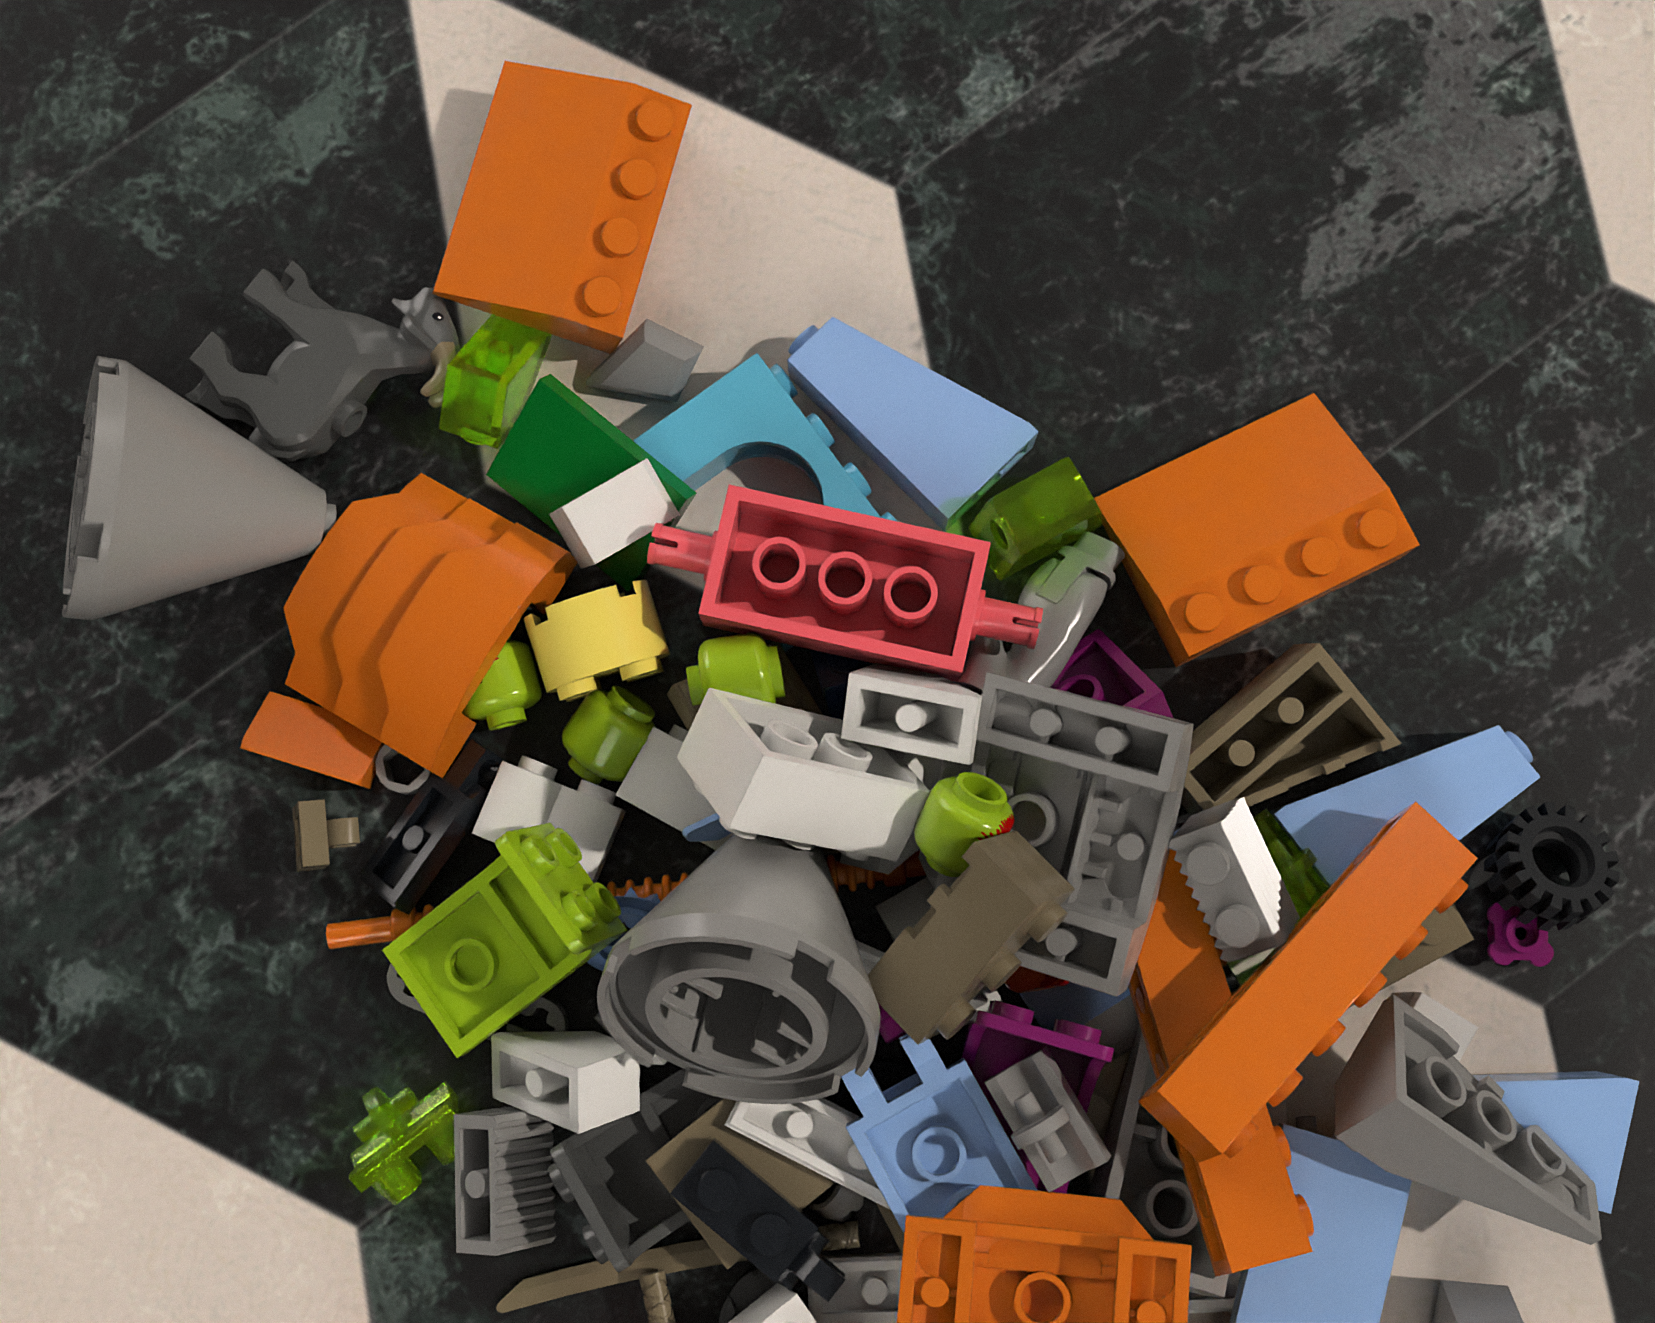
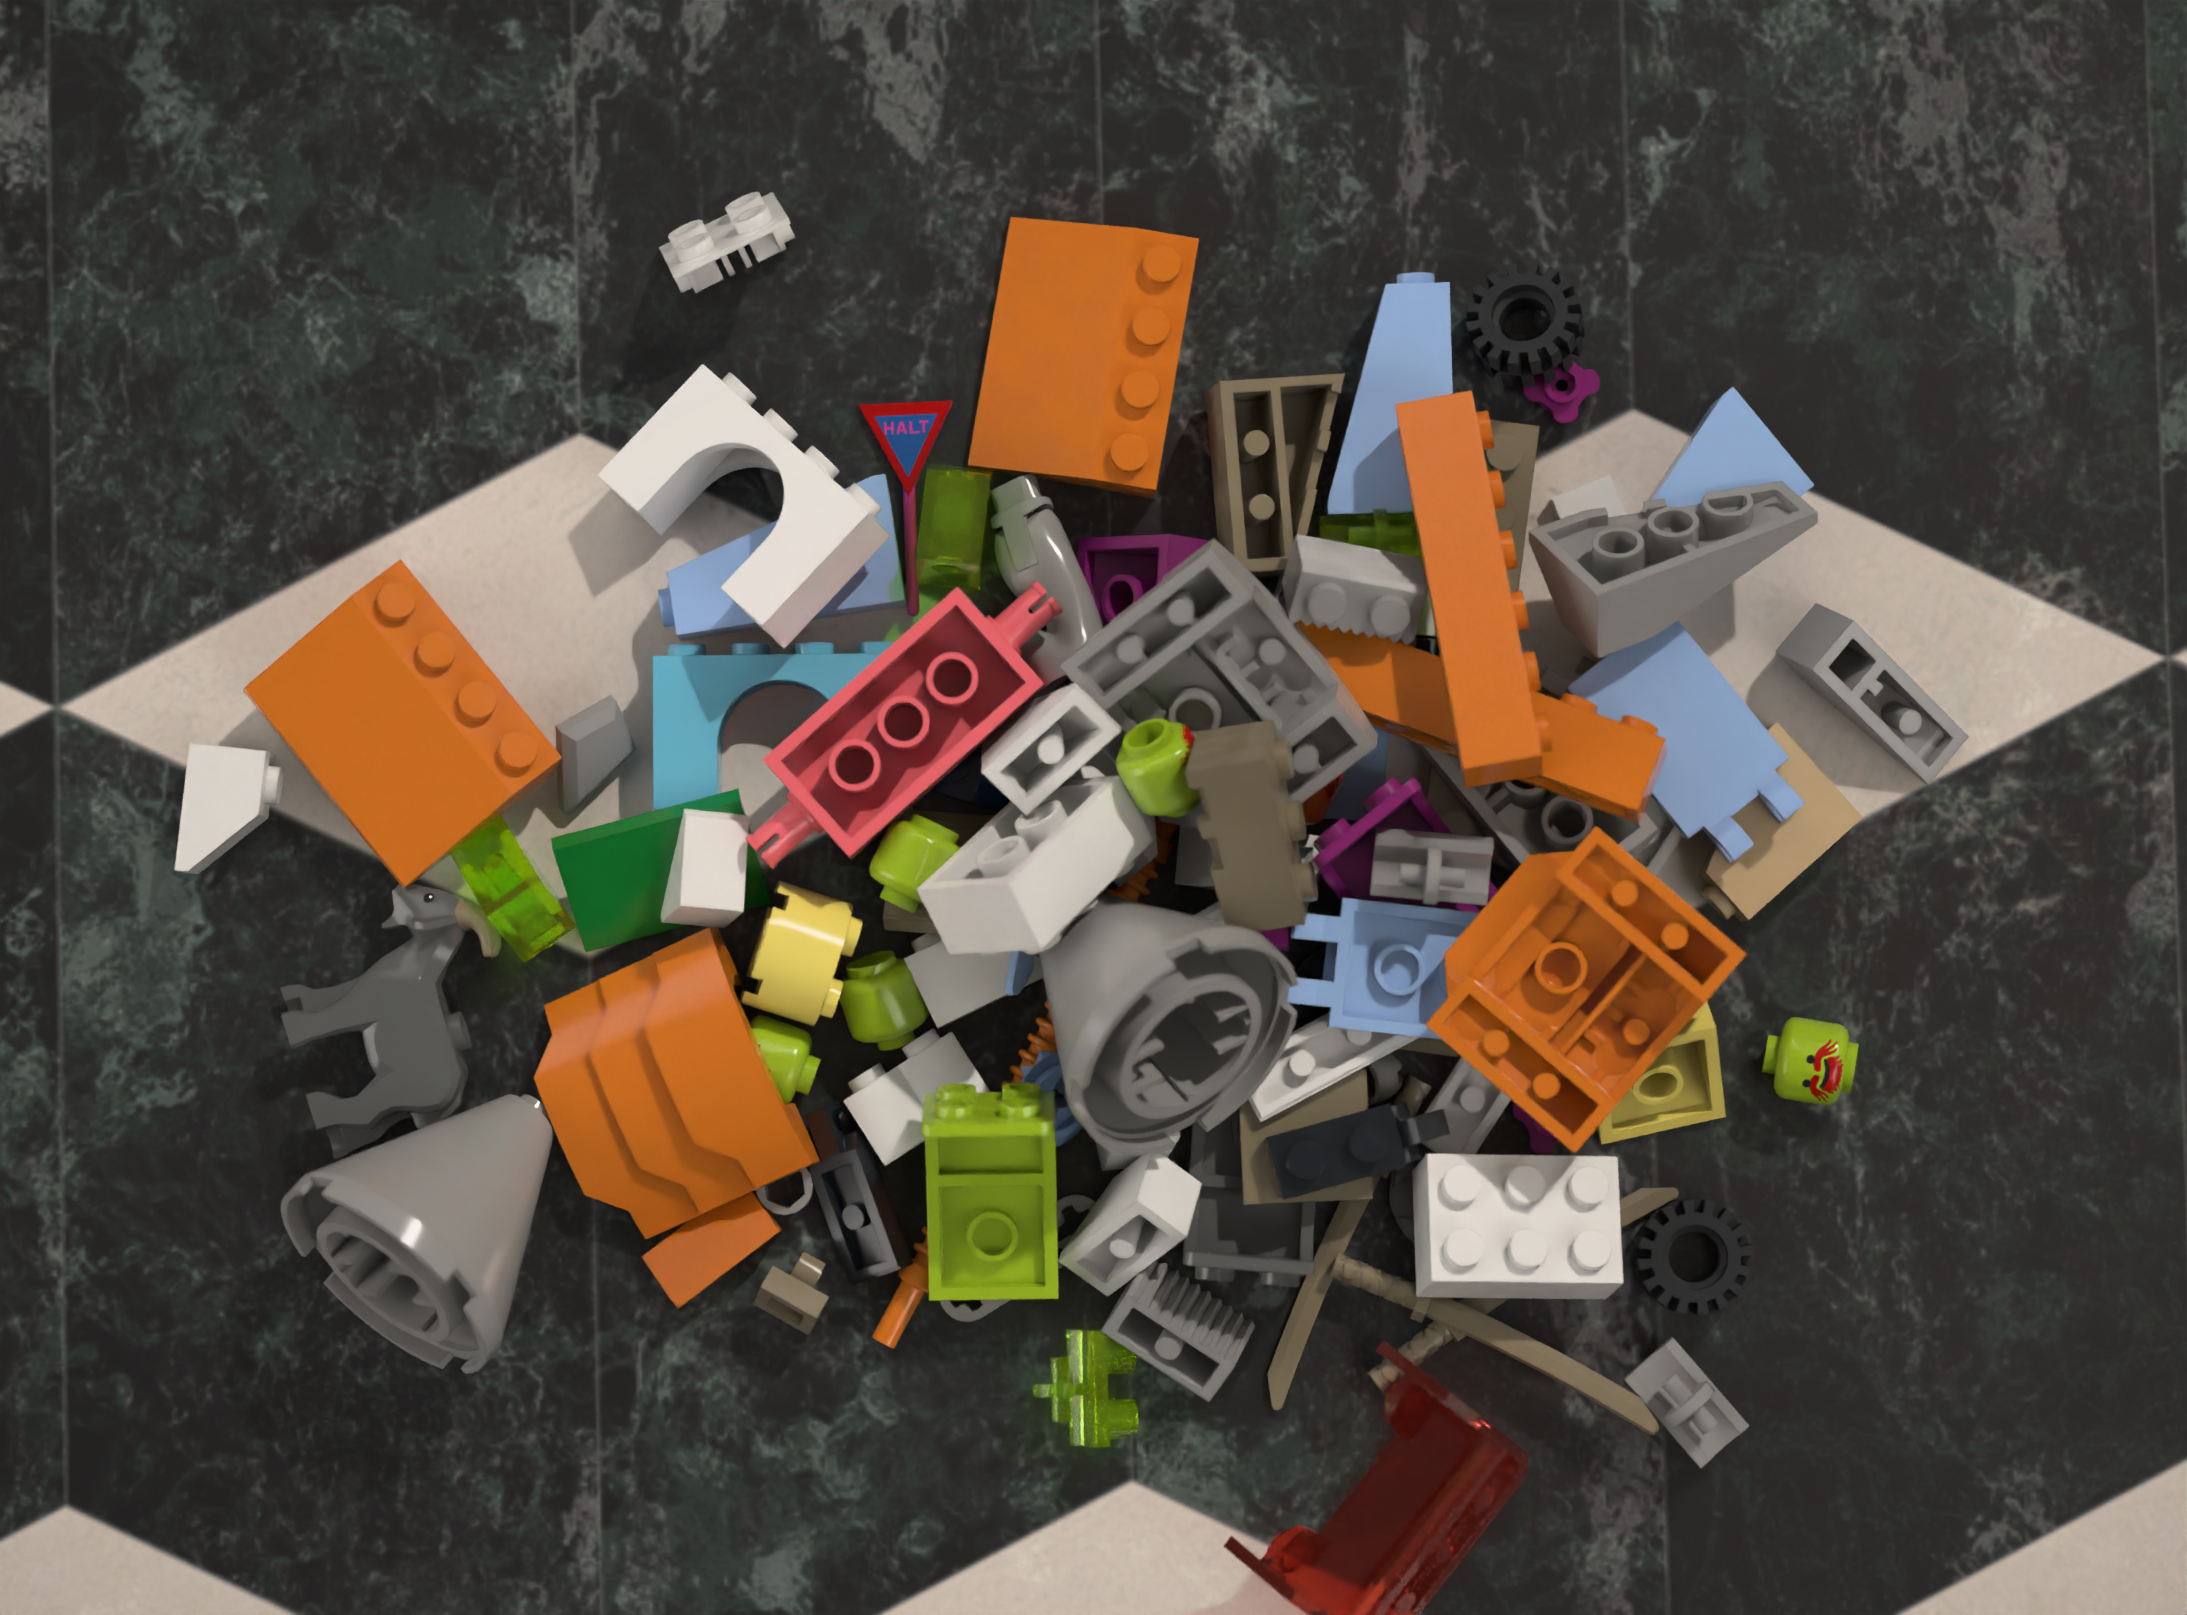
camera: 60 degrees left, 5 degrees up
(405, 114) = (223, 801): none -> white slope
(952, 404) = (821, 528): none -> white arch
(1079, 433) = (907, 438): none -> piece
(1105, 162) = (748, 221): none -> white hinge

